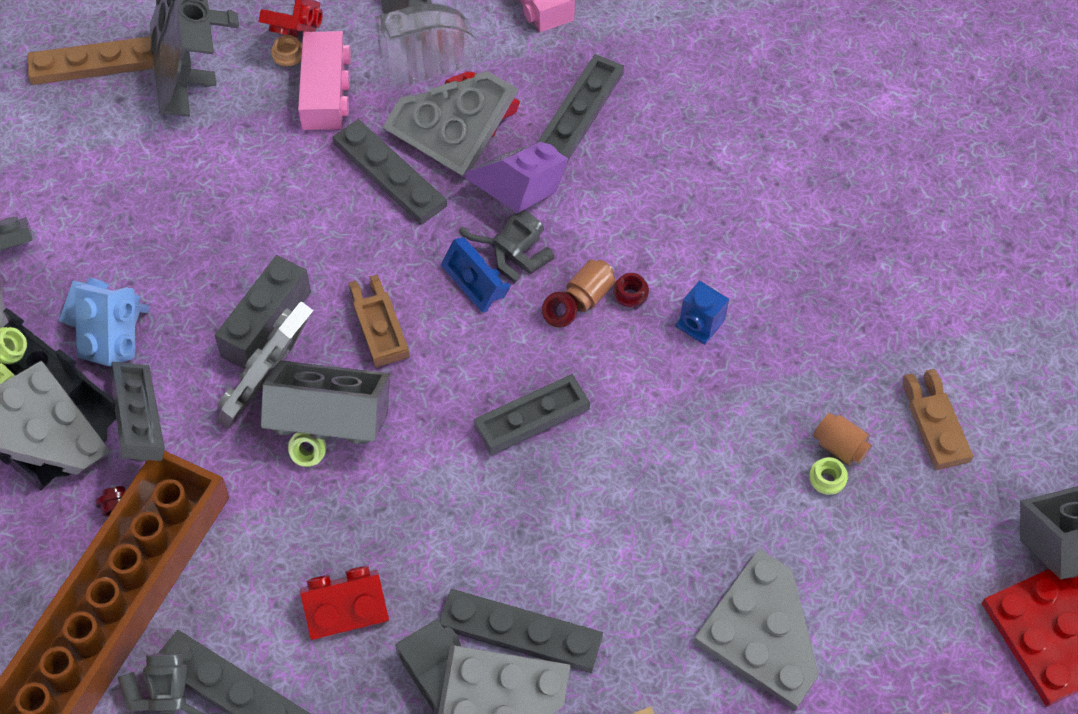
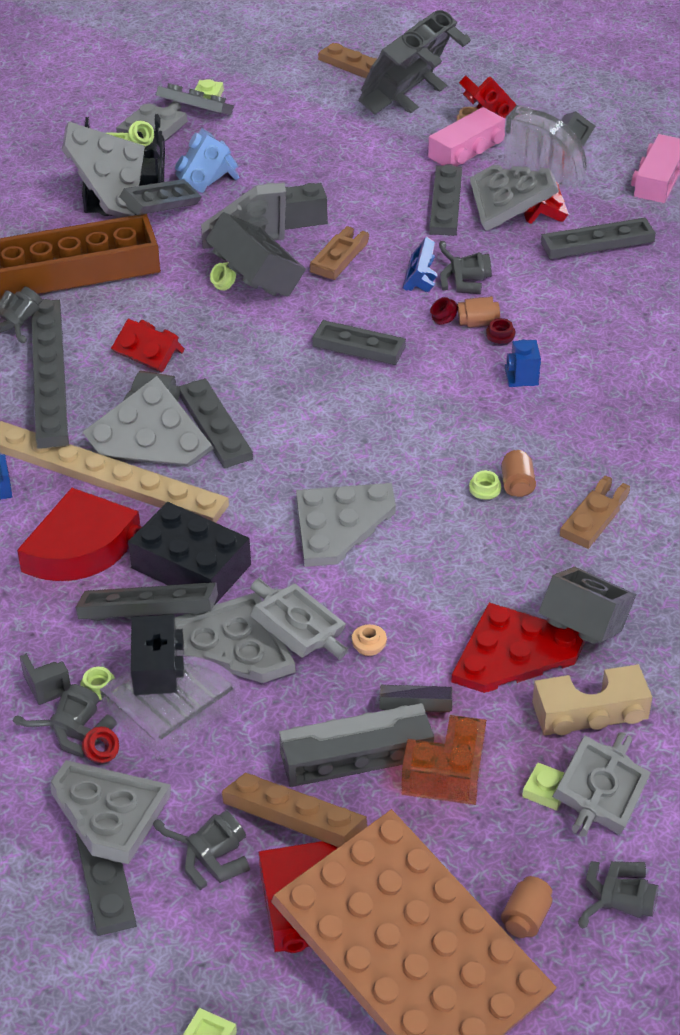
camera: 50 degrees right, 15 degrees down
(521, 175) = (510, 237): medium lavender slope -> none

